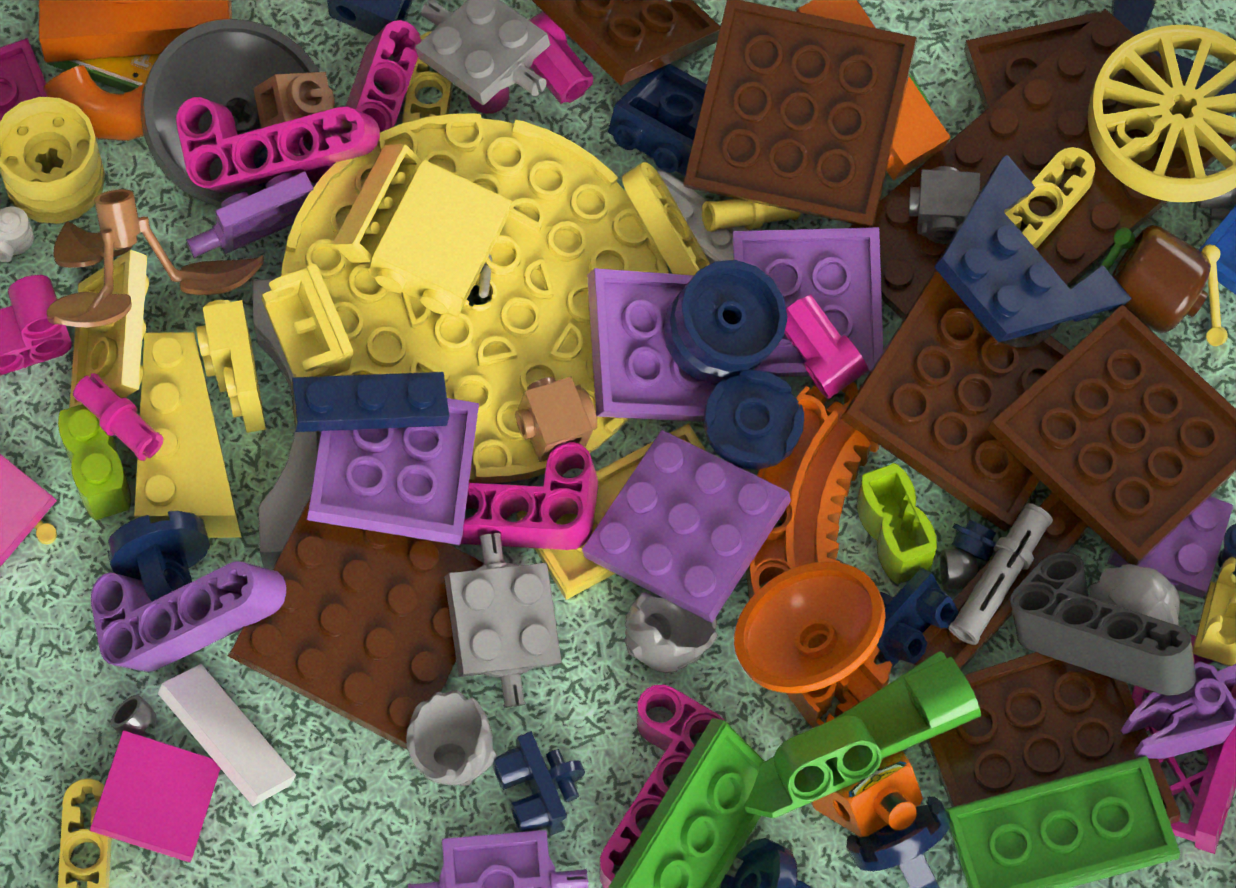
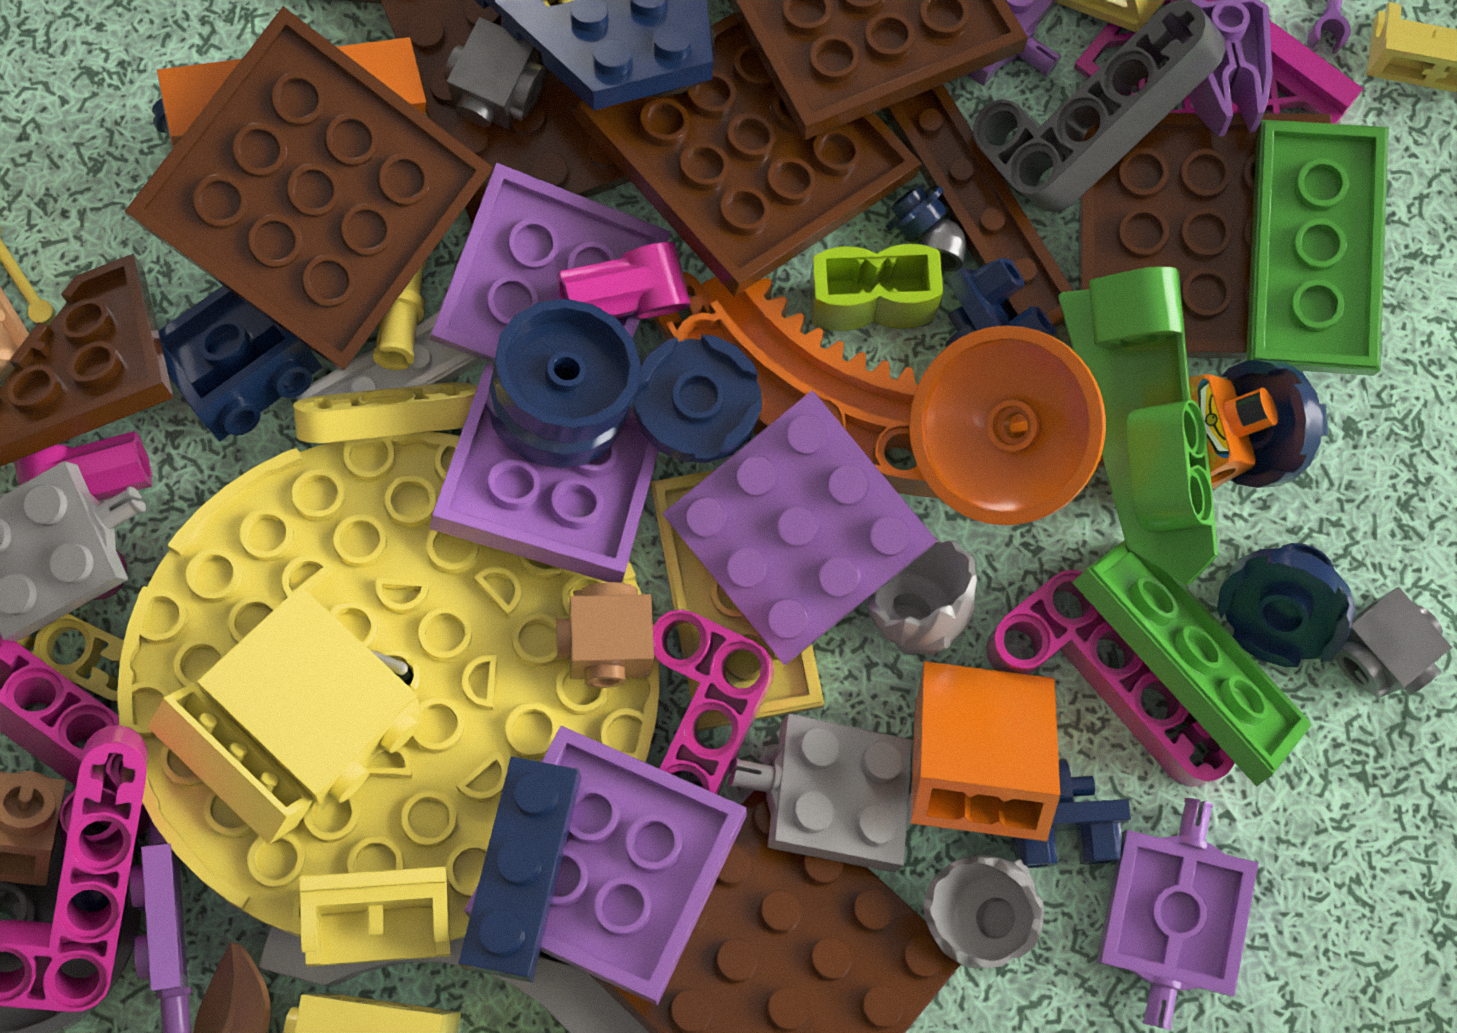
camera: 70 degrees left, 10 degrees up
(566, 699) = (985, 752): none -> orange brick
(1028, 528) = (969, 181): light grey pin -> none
(1140, 591) = (1063, 59): light grey hair -> none

